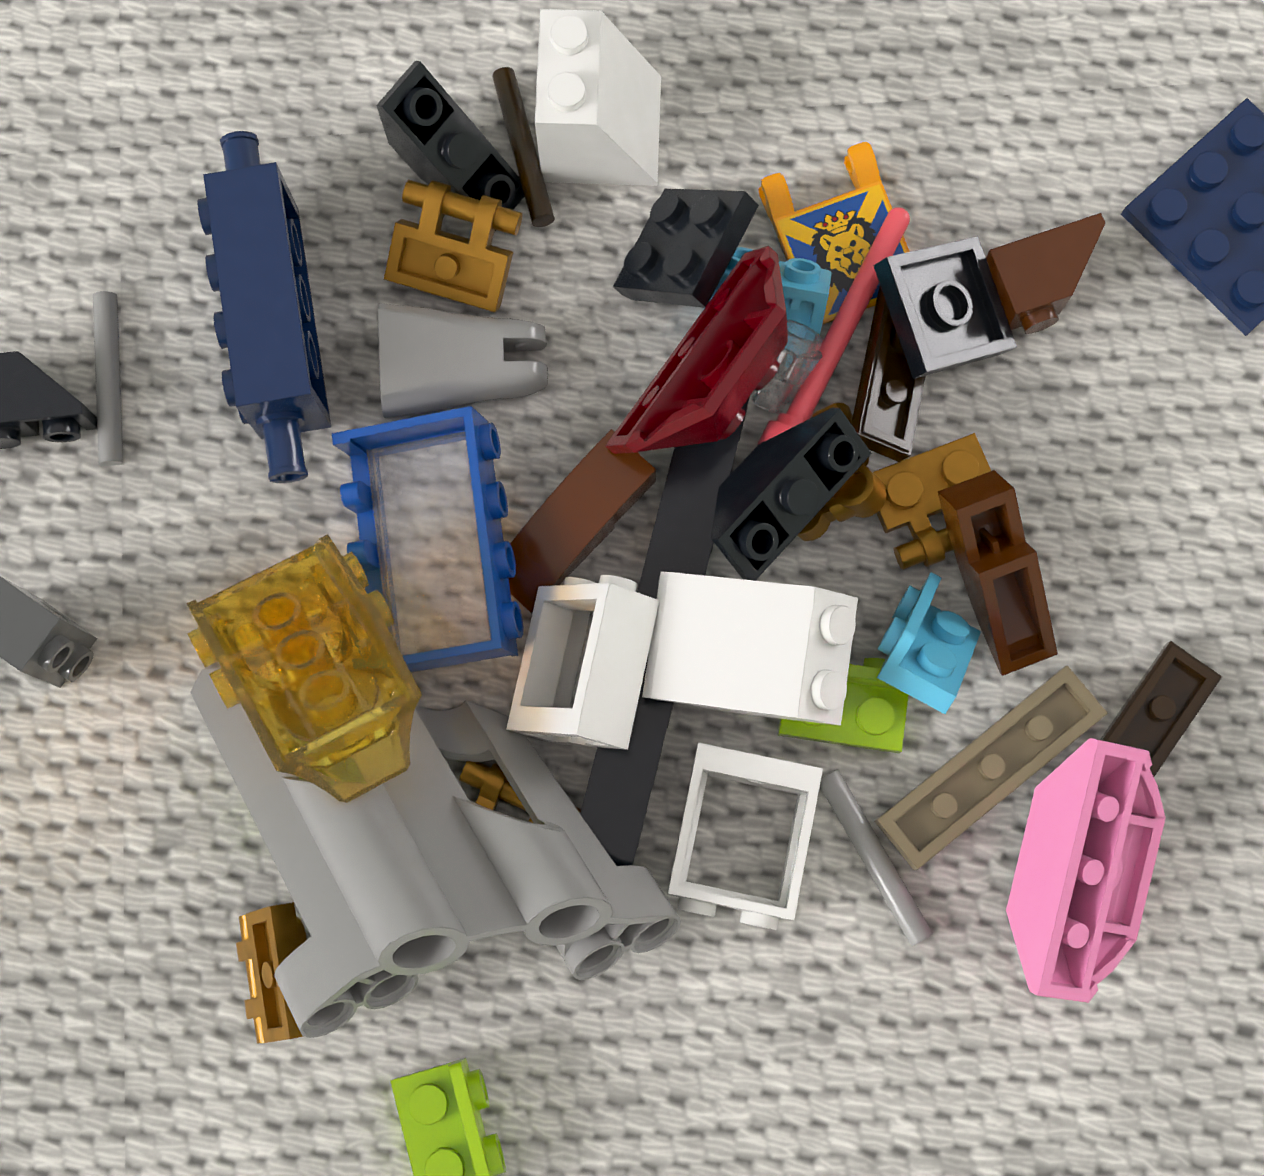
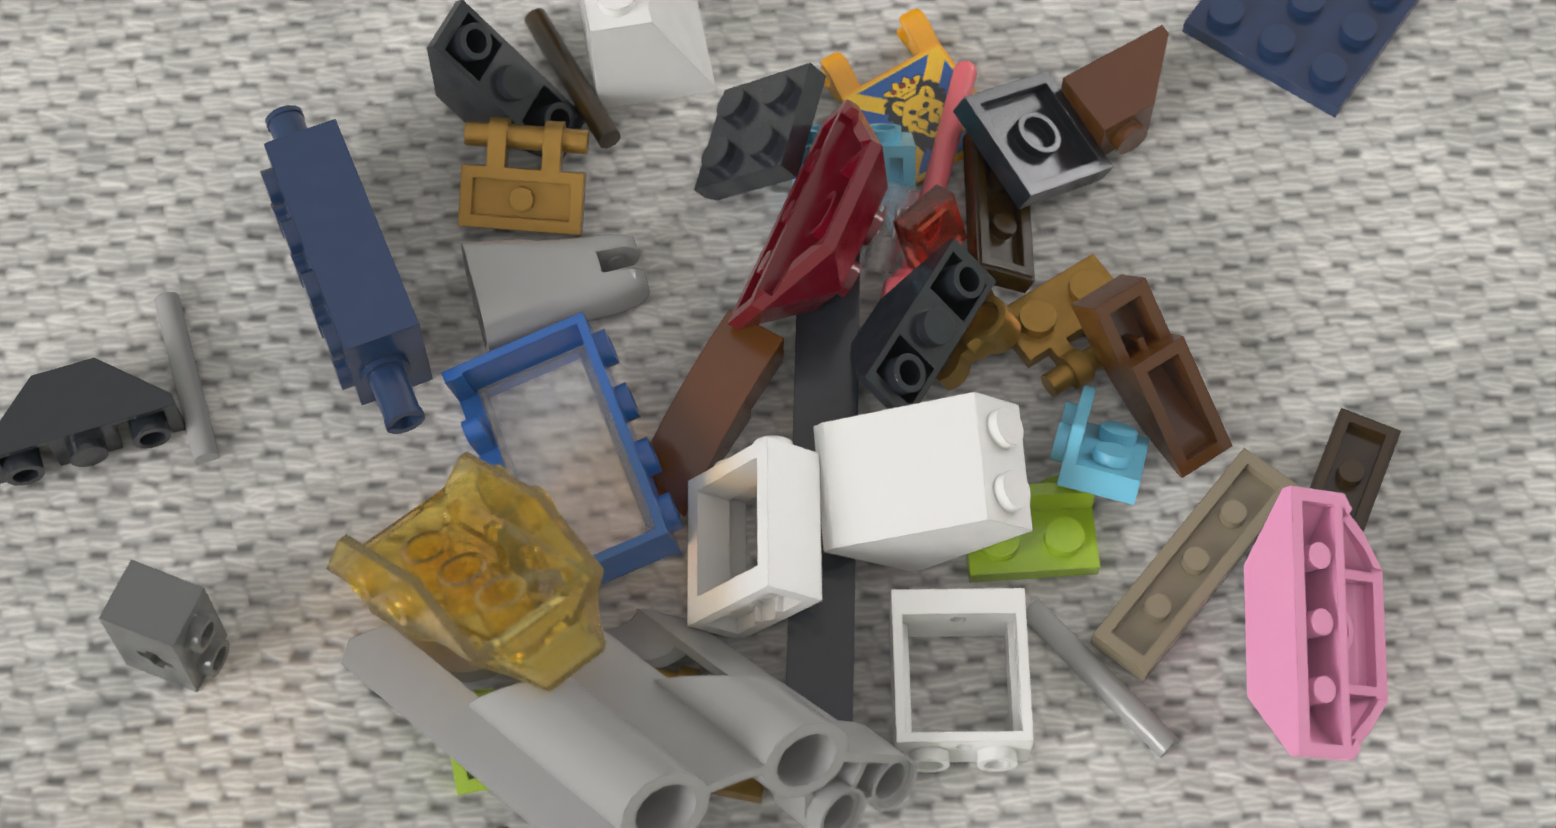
camera: 15 degrees left, 15 degrees down
(821, 383) = (929, 225): none -> clear red plate

